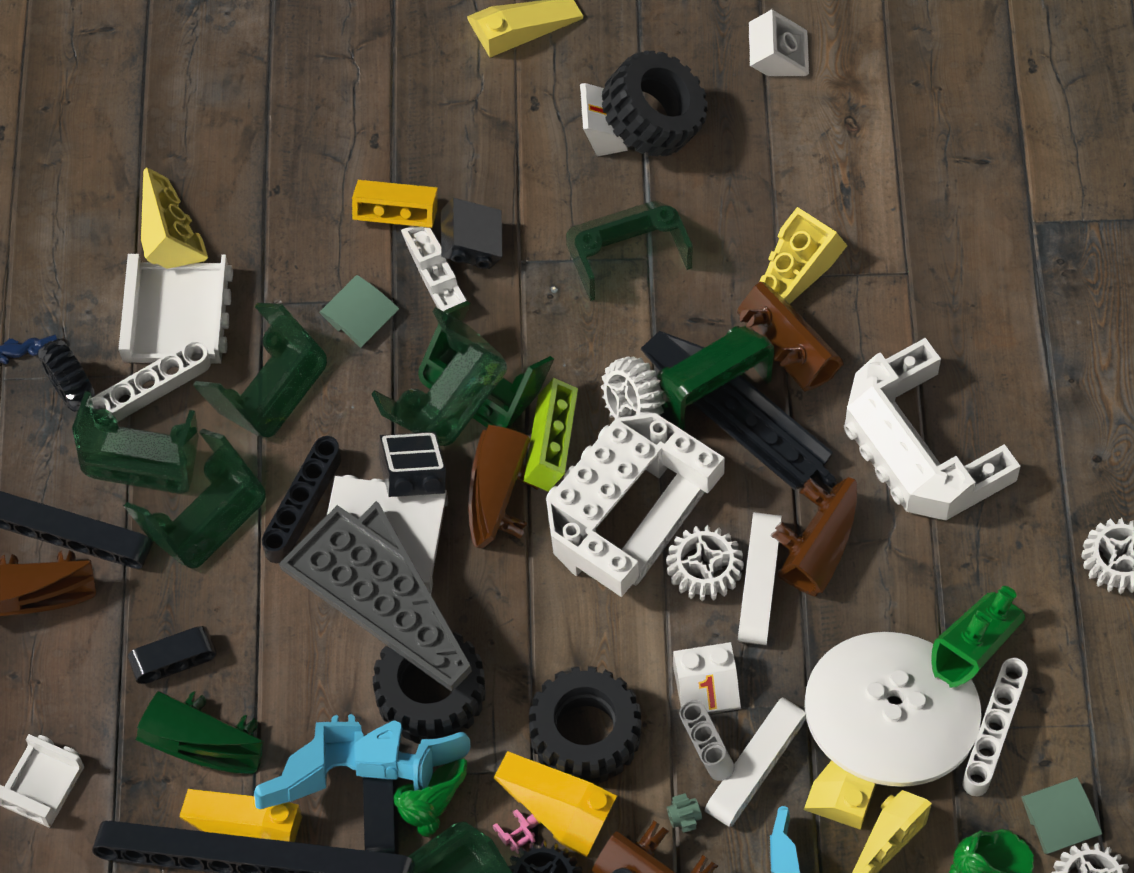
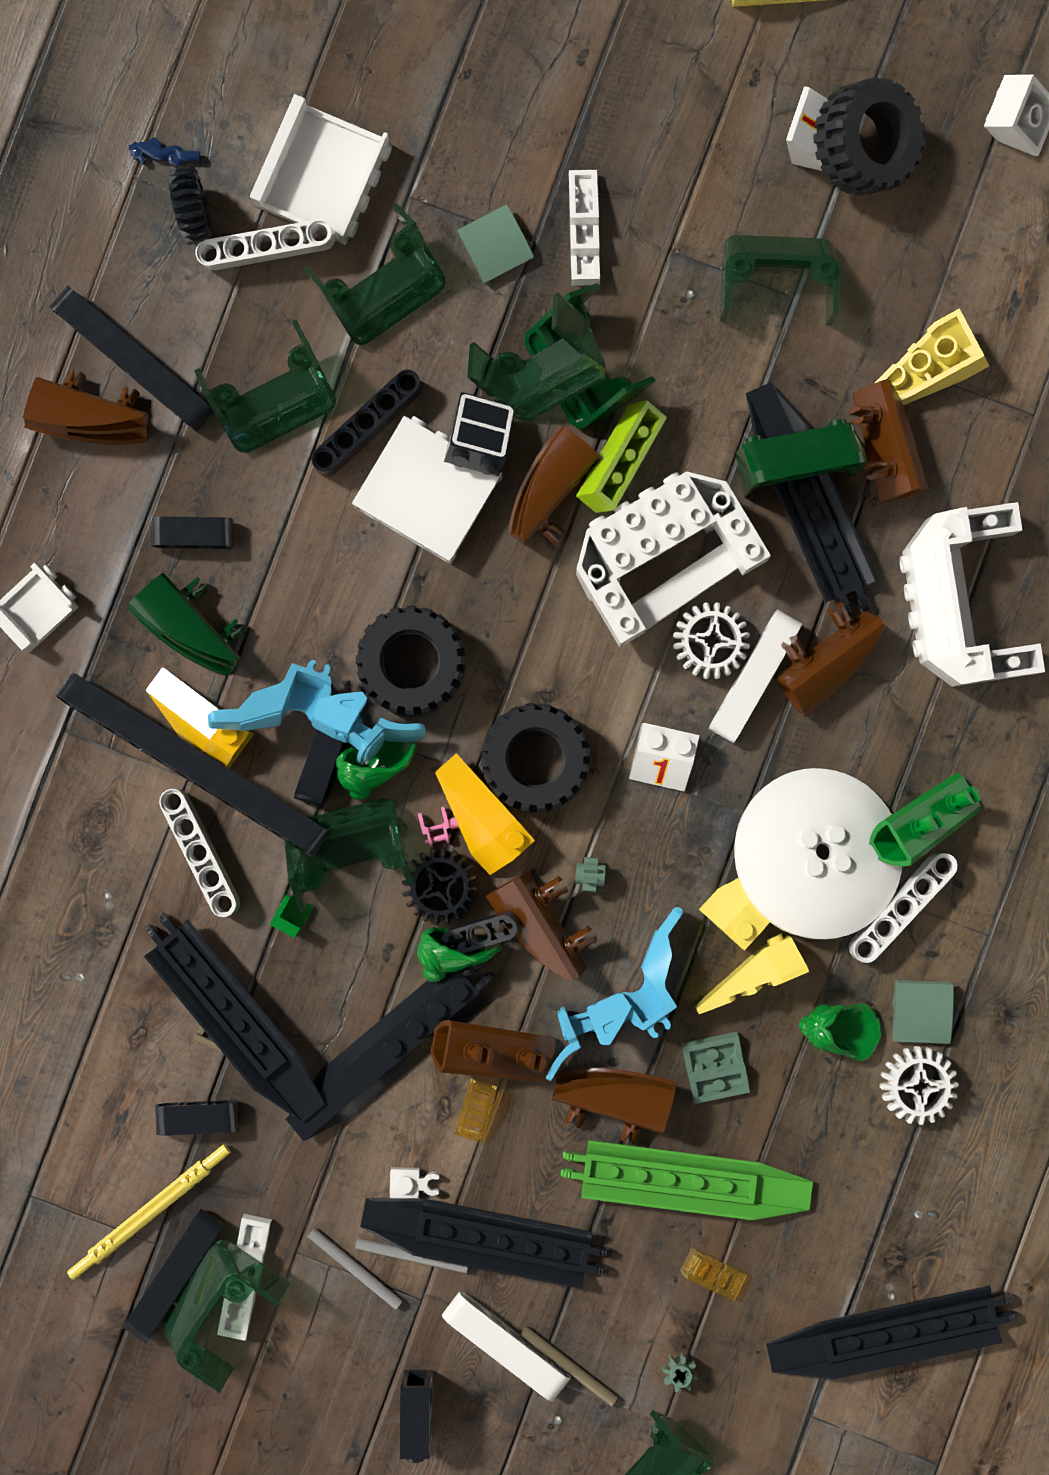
camera: 20 degrees right, 25 degrees up
(134, 454) = (225, 312): clear green windscreen -> none
(165, 227) = (342, 80): light yellow wedge -> none
(374, 583) = (393, 541): dark grey wing -> none
(394, 203) = (572, 140): yellow brick -> none
(471, 233) = (632, 207): black piece -> none
(631, 388) = (715, 444): white gear -> none
(706, 740) = (637, 805): light grey beam -> none
(756, 762) = (675, 851): white beam -> none

